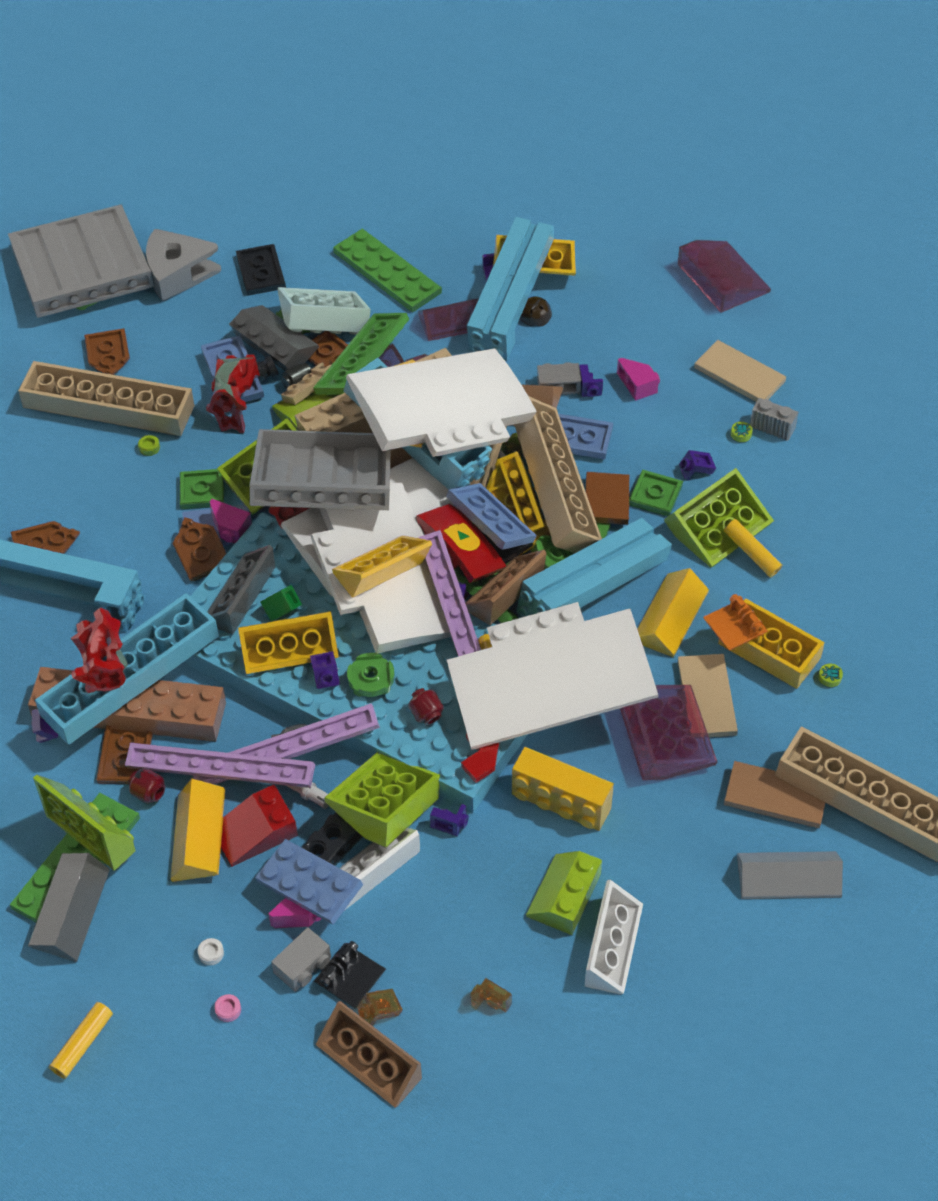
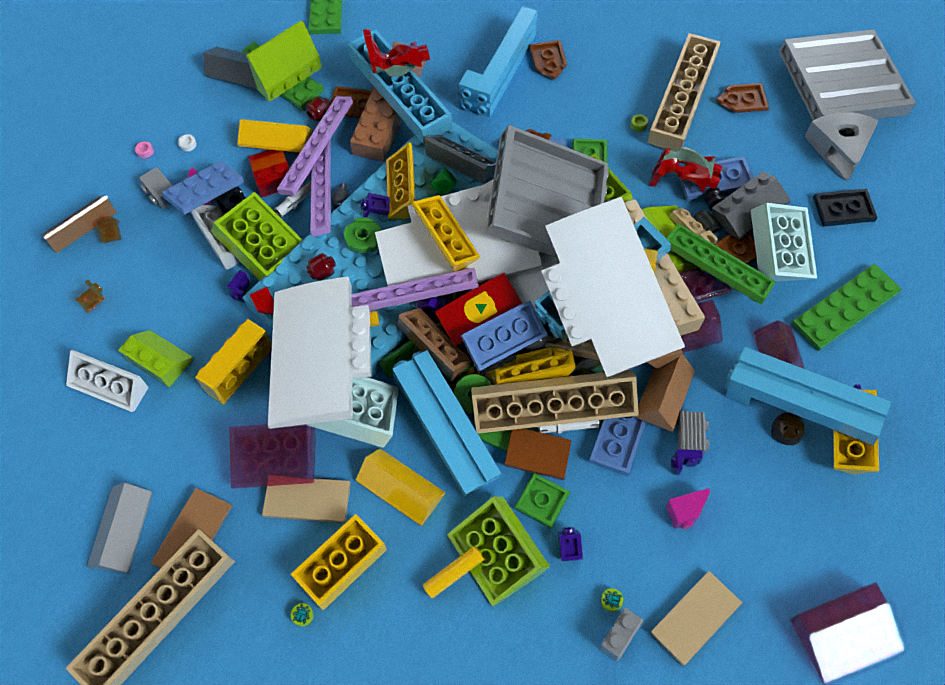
camera: 100 degrees right, 10 degrees up
(80, 1040) = (148, 75): yellow piece -> none
(350, 974) = (141, 216): black hinge -> none
(735, 623) = (352, 525): orange hinge -> none

